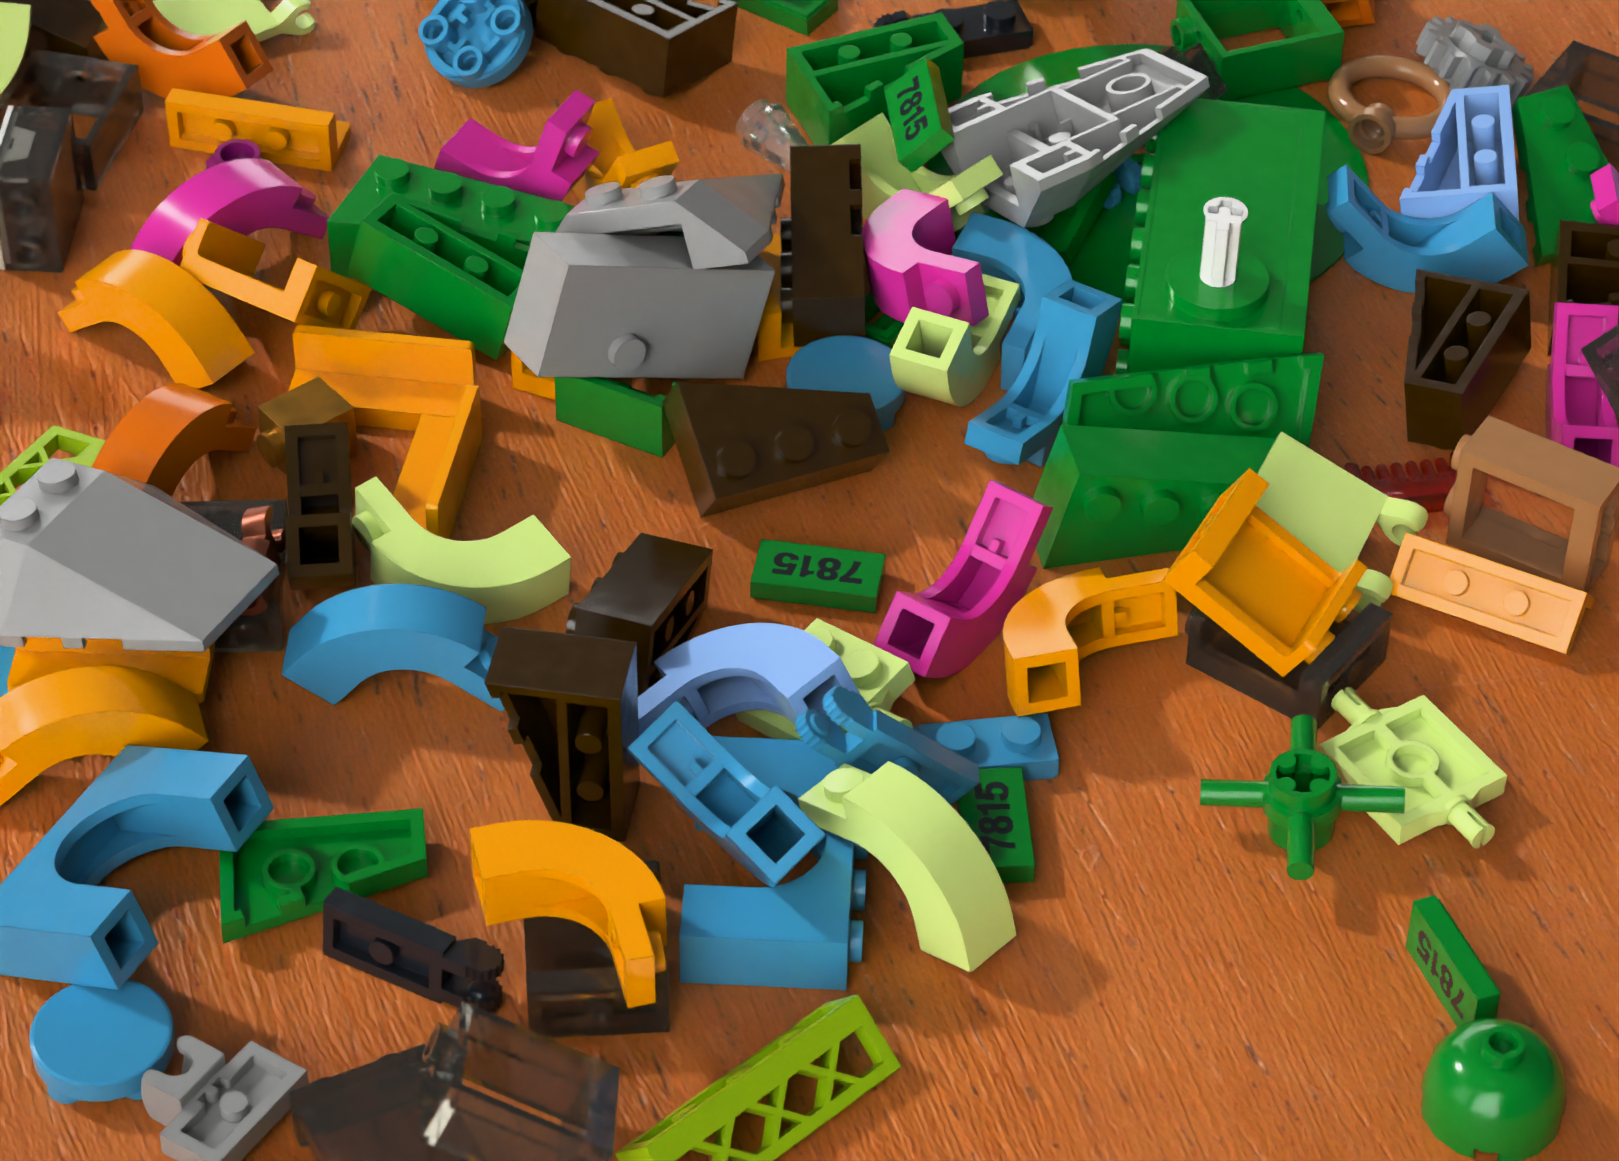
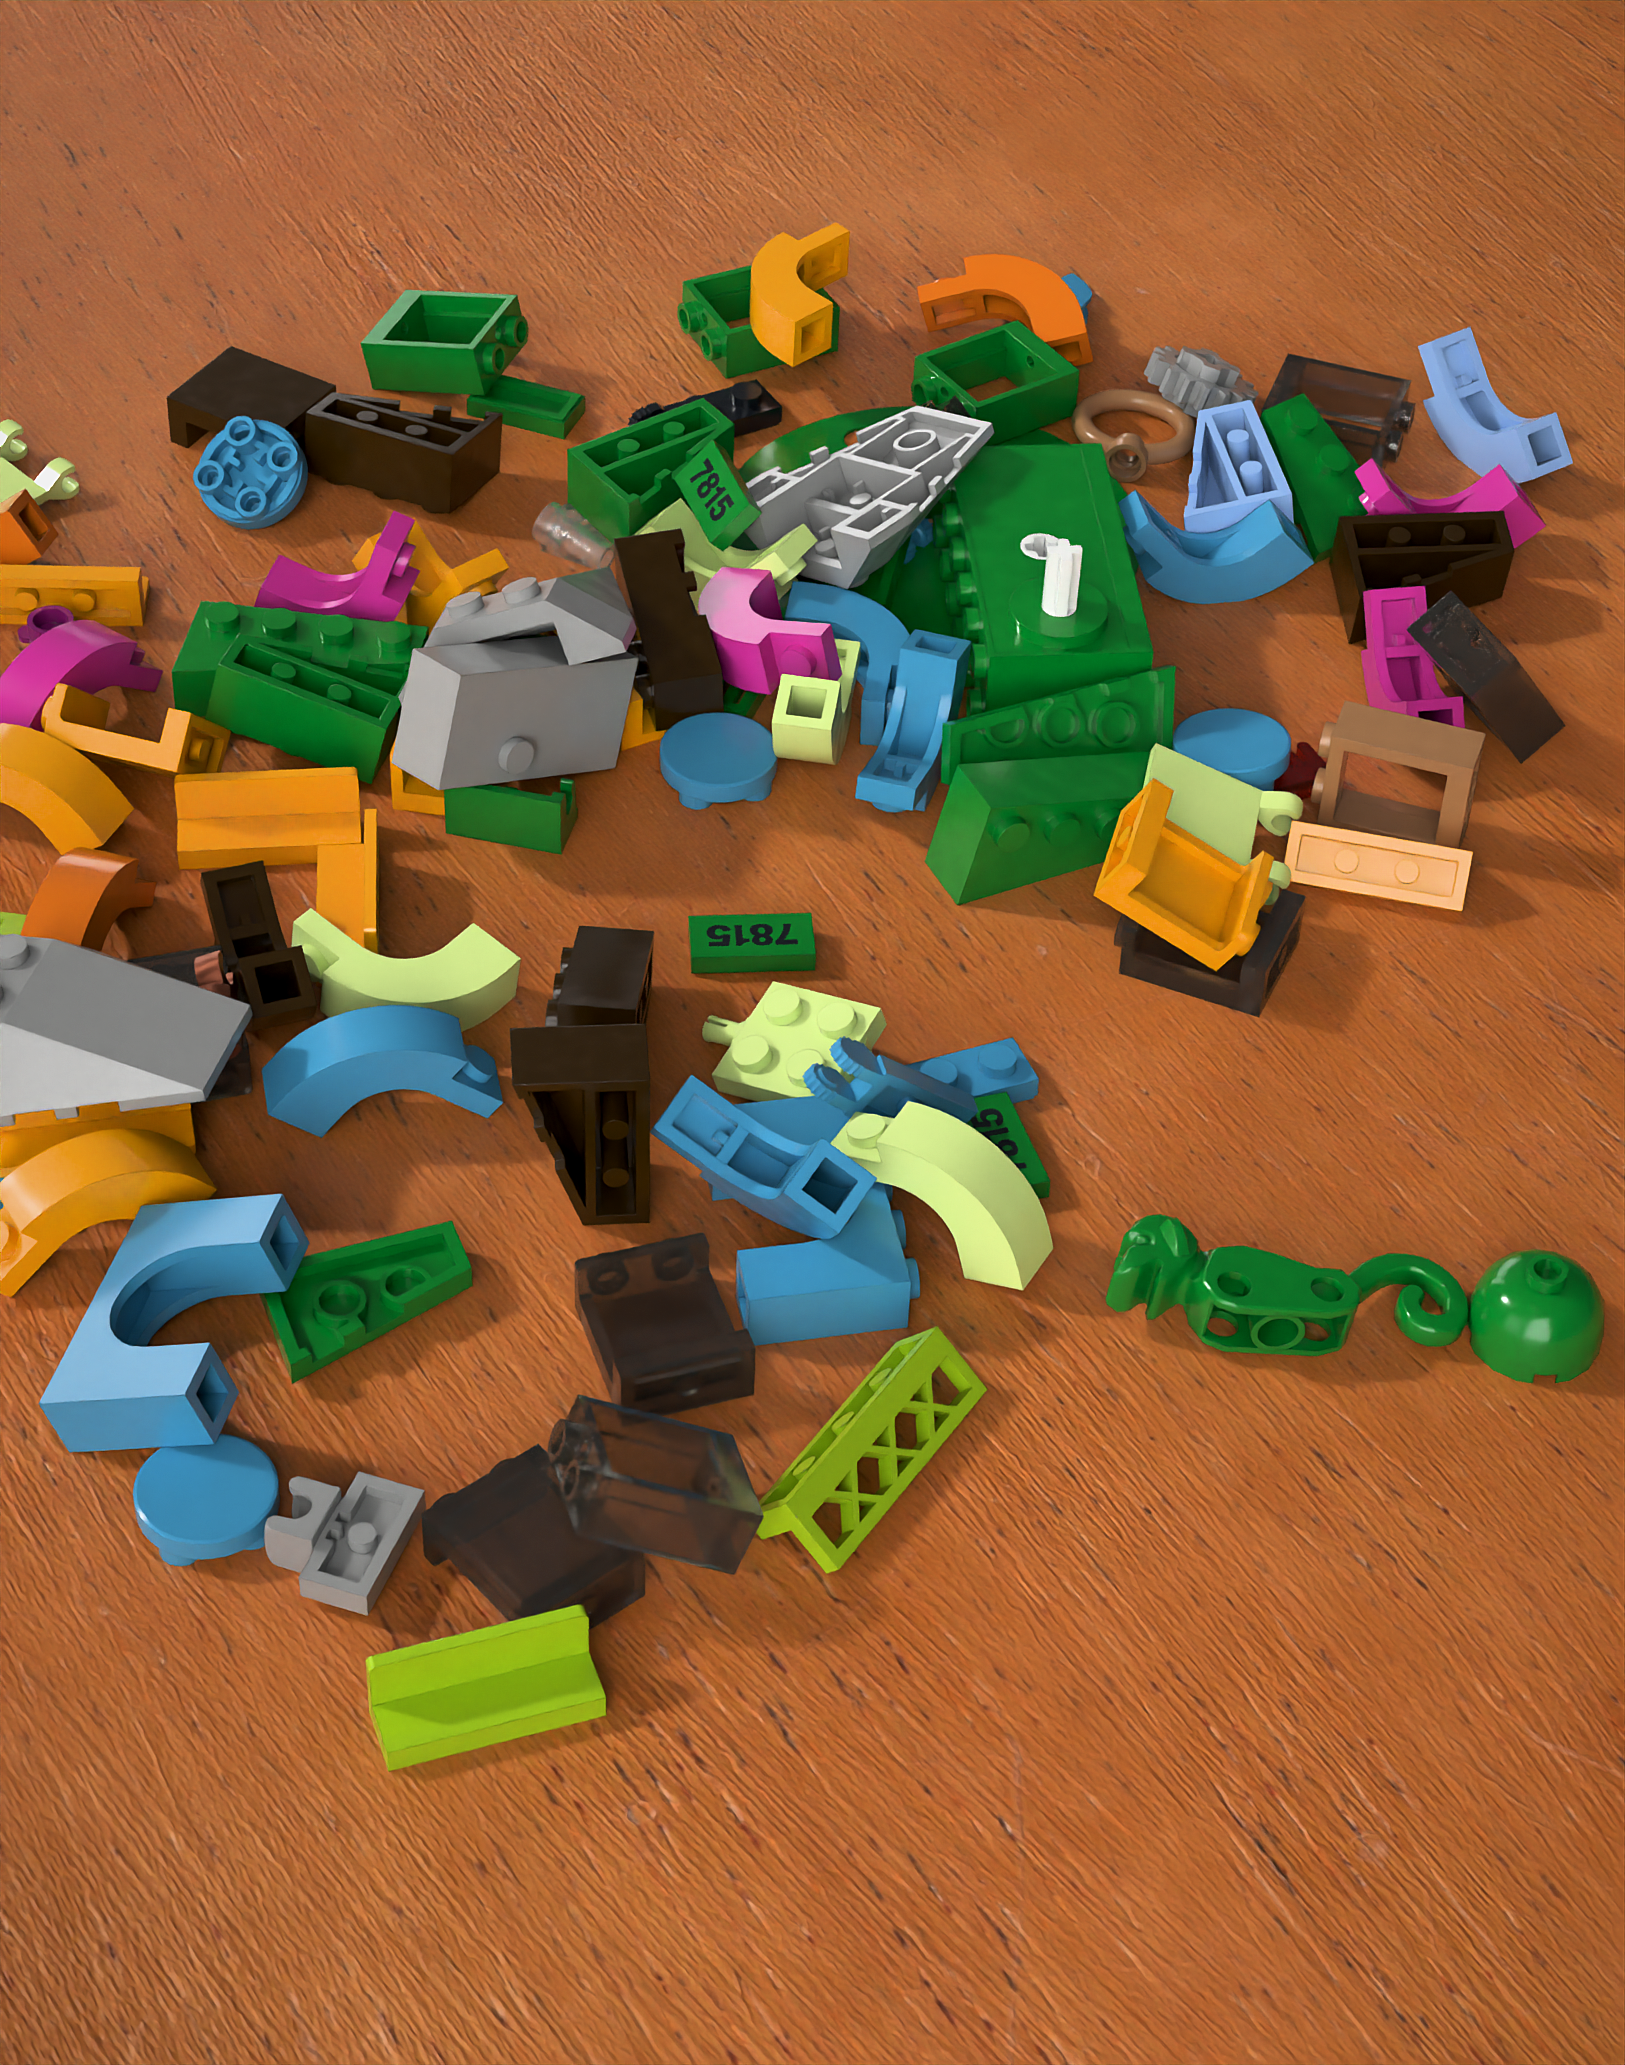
camera: 15 degrees left, 0 degrees up
(306, 404) = (203, 852): pearl gold brick -> none
(411, 952) = (486, 1361): black hinge -> none
(579, 876) = (646, 1259): light orange arch -> none
(743, 671) = (739, 1037): light blue arch -> none
(769, 440) = (670, 820): dark brown wedge -> none
(969, 603) = (914, 929): dark pink arch -> none
(1073, 619) = (1011, 946): light orange arch -> none
(1222, 1021) = (1274, 1295): none -> green animal
(1302, 797) = (1278, 1078): green bar -> none
(1377, 446) = (1237, 744): none -> dark azure tile
(1426, 754) = (1362, 1037): yellowish green plate -> none
(1450, 963) = (1461, 1210): green tile -> none
(1461, 354) = (1281, 647): dark brown wedge -> none

